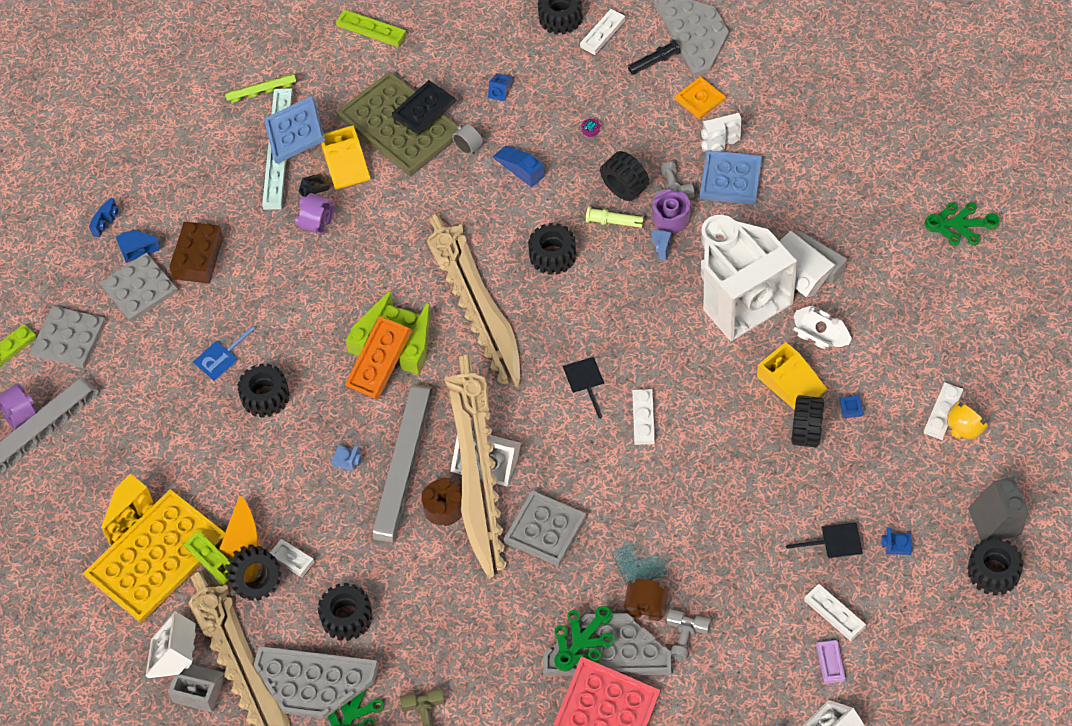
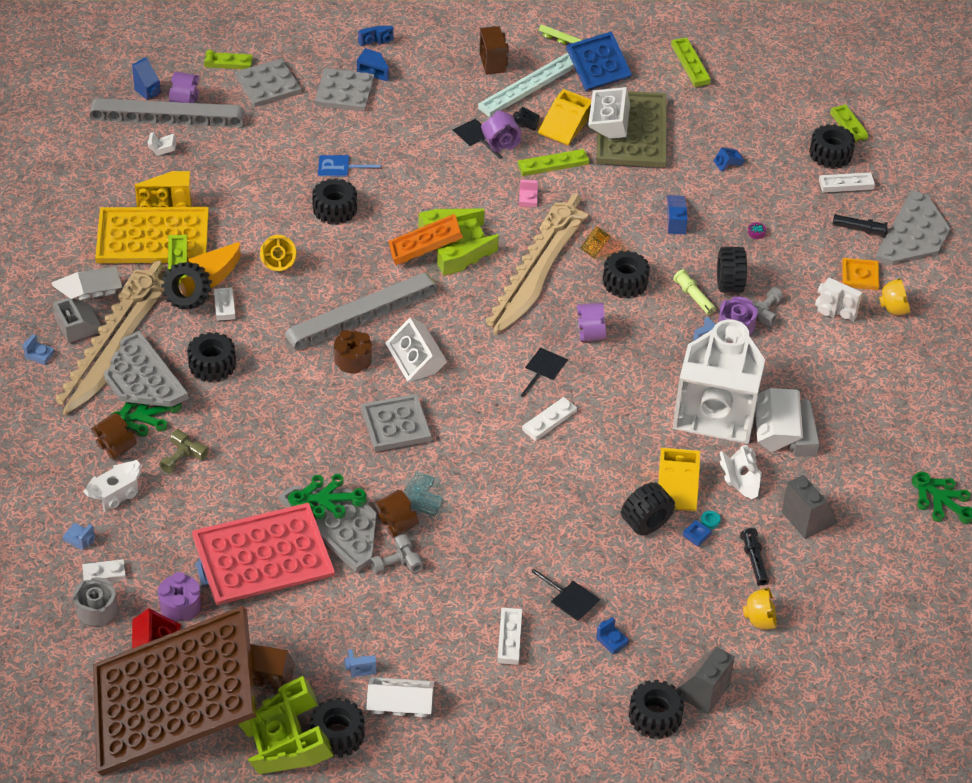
camera: 40 degrees right, 10 degrees down
(57, 470) = (162, 145): none -> white bracket
(196, 252) = (402, 96): reddish brown brick -> none
(218, 149) = (493, 50): none -> reddish brown brick
(283, 475) = (278, 253): none -> yellow cylinder
(287, 233) = (472, 133): none -> black piece
(294, 129) = (552, 74): medium blue plate -> none
(306, 80) = (598, 61): none -> blue plate
(347, 458) = (333, 281): medium blue bracket -> none
(378, 124) = (610, 112): none -> white slope
(378, 204) = (553, 162): none -> lime plate
(395, 248) = (528, 193): none -> bright pink bracket
(423, 107) = (656, 128): black plate -> none
(467, 139) = (660, 169): light grey piece -> none
(475, 403) = (441, 305): tan piece -> none
(498, 241) = (595, 242): none -> clear yellow slope
(581, 310) = (591, 322): none -> medium lavender brick
(730, 177) = (811, 335): medium blue plate -> none
(752, 95) = (894, 298): none -> yellow cylinder
(830, 661) = (467, 661): lavender tile -> none
(844, 387) = (710, 519): none -> teal tile
(899, 381) = (753, 549): none -> black pin
(900, 317) = (806, 508): none -> dark grey slope
(937, 421) = (779, 587): white plate -> none

